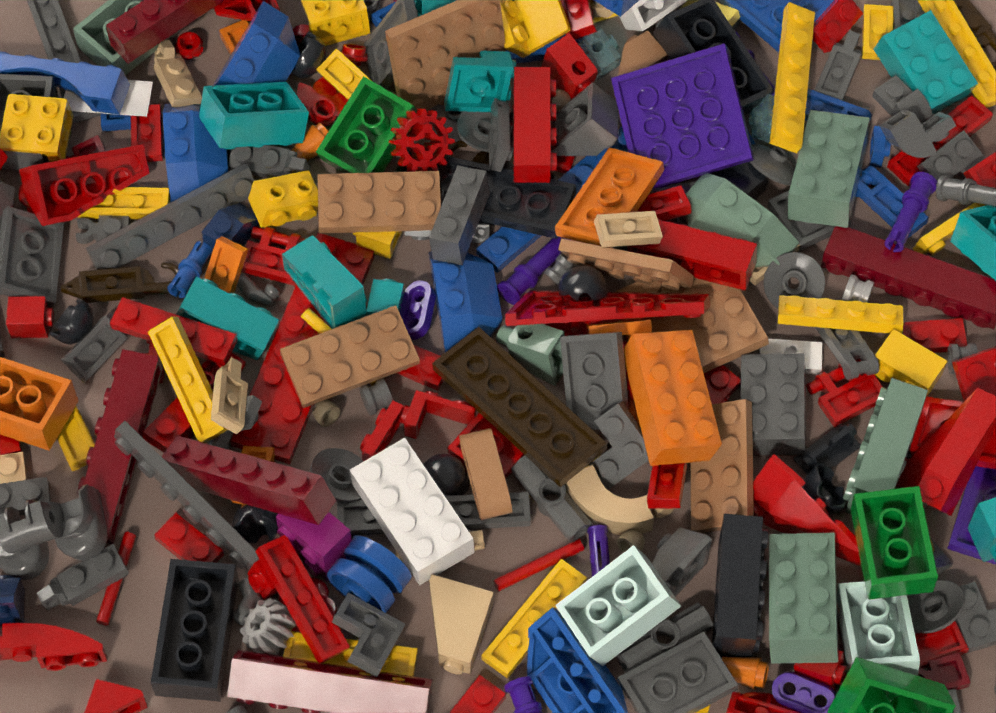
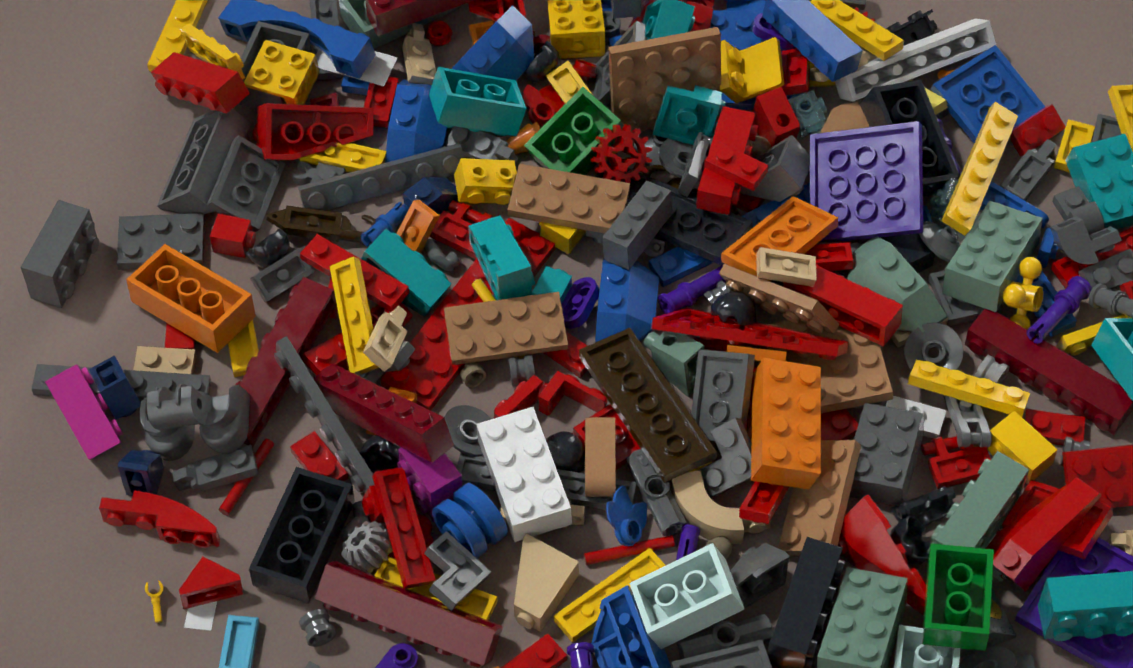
camera: 15 degrees right, 5 degrees down
(529, 532) = (626, 518): none -> blue plate
(547, 130) = (736, 166): none -> red plate
(871, 203) = (1025, 295): none -> yellow piece

